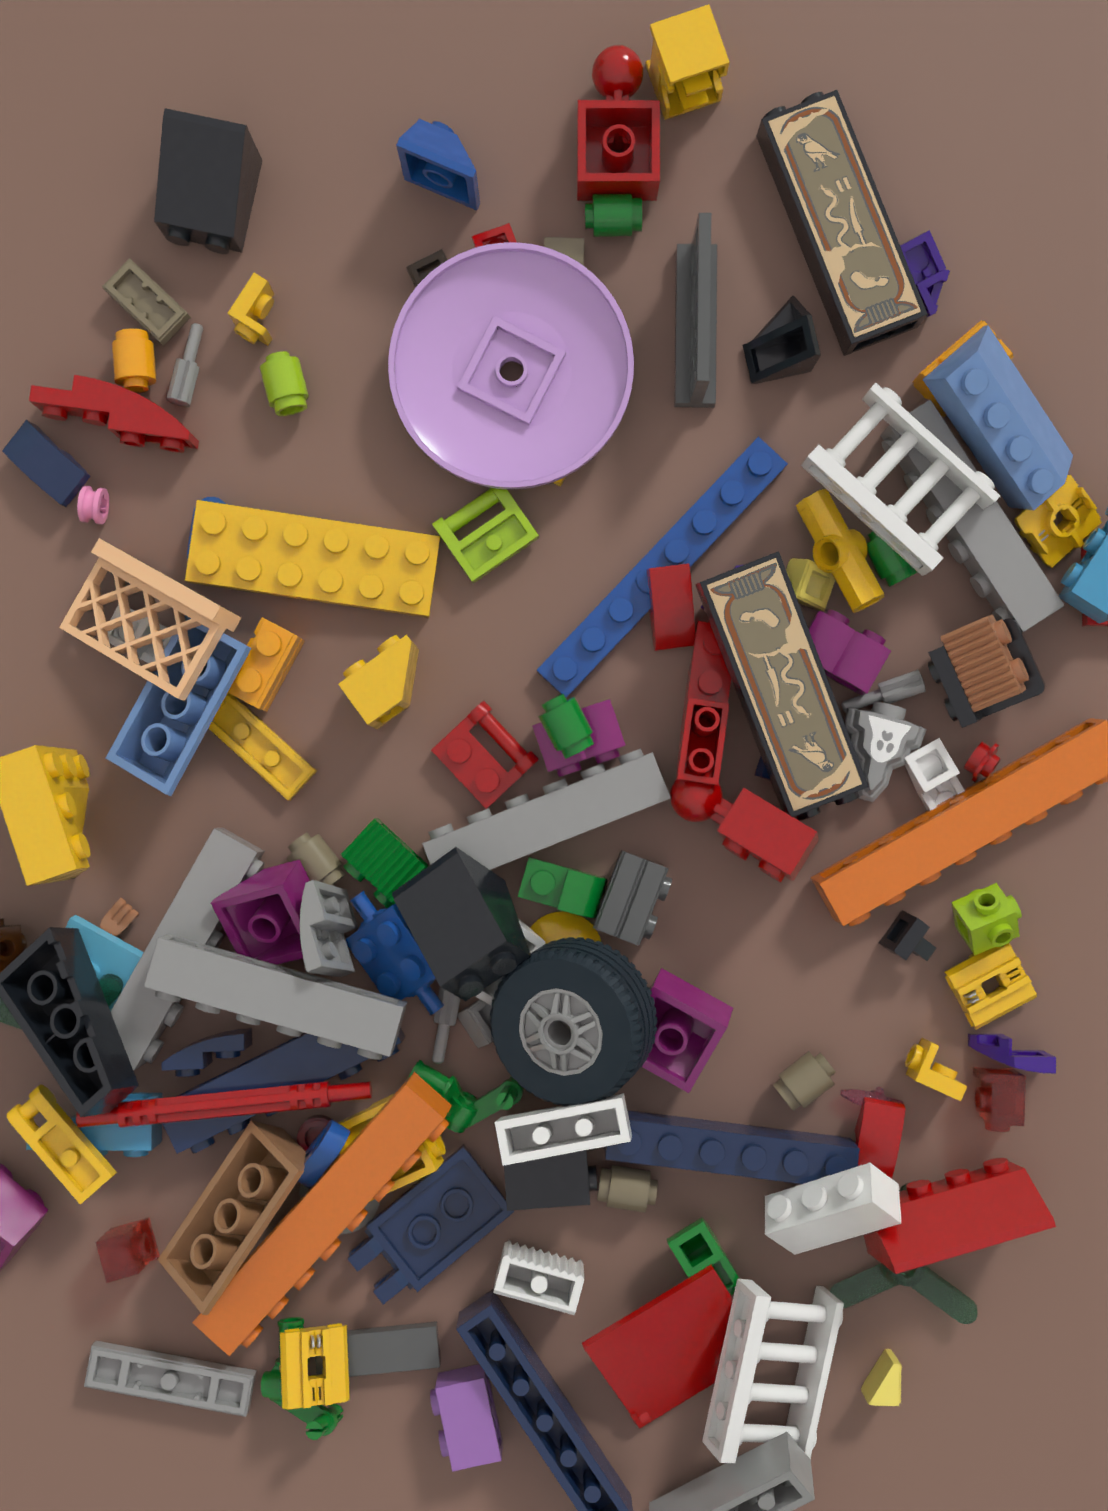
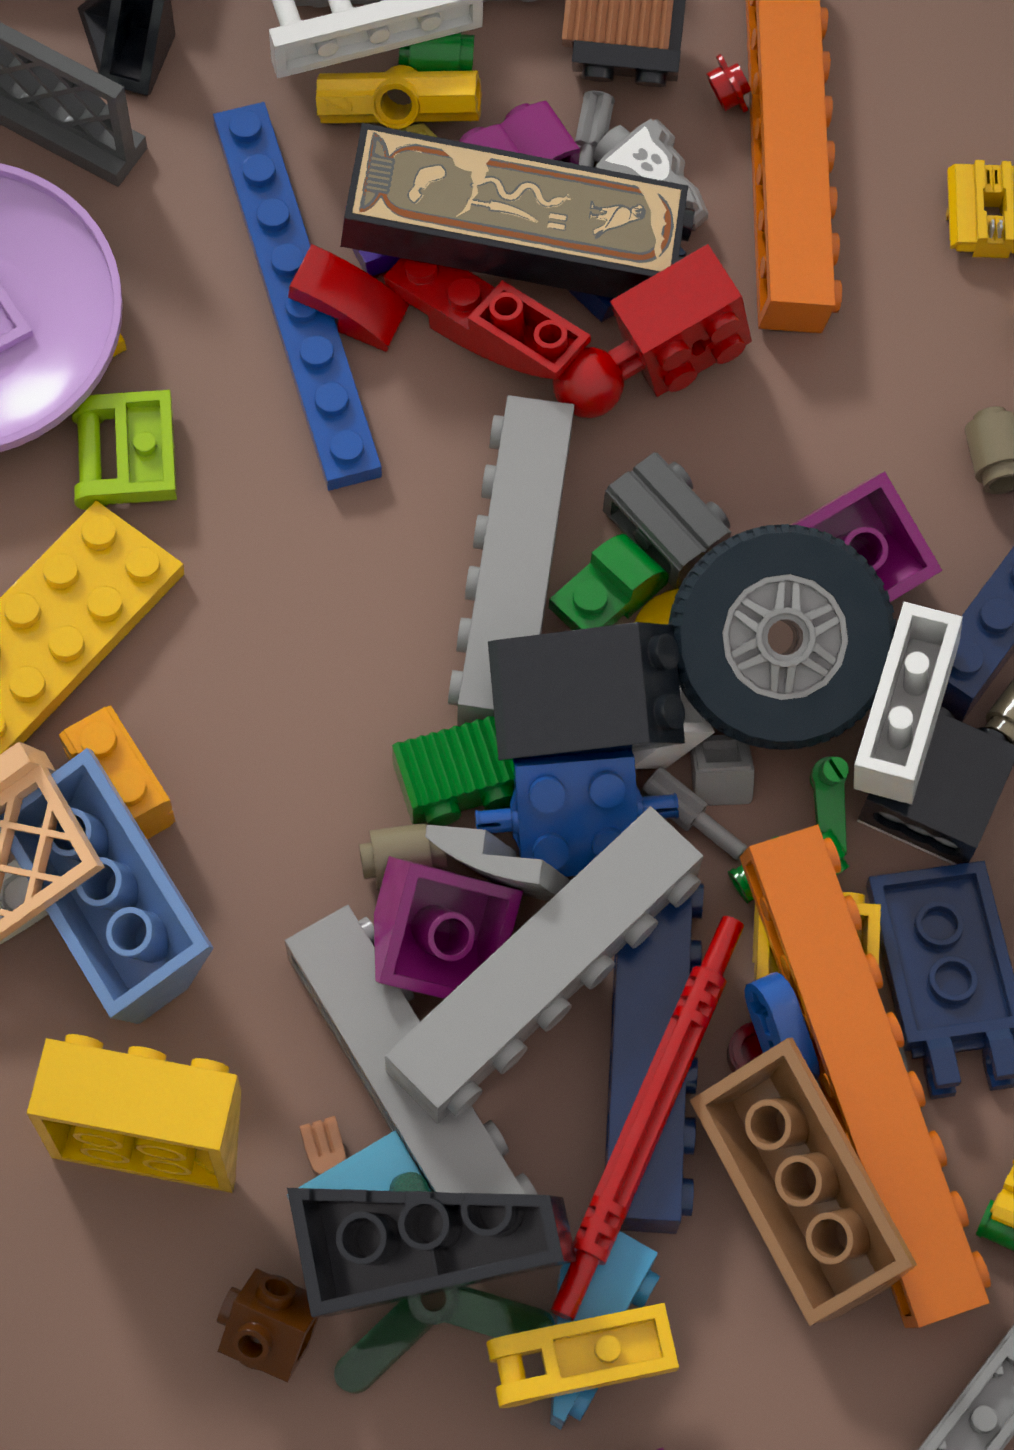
camera: 65 degrees left, 20 degrees down
(127, 1249) = (774, 1374): clear red brick -> none
(199, 1053) = (564, 1135): dark blue slope -> none
(261, 747) = (230, 846): yellow tile -> none
(384, 683) = (231, 642): yellow slope -> none
(474, 764) = (396, 613): red plate -> none
(566, 725) = (417, 458): green brick -> none
(605, 734) = (438, 473): magenta brick -> none
(906, 937) = (886, 258): black tile -> none
(933, 774) = (713, 144): white slope -> none
(986, 918) = (912, 168): lime brick -> none

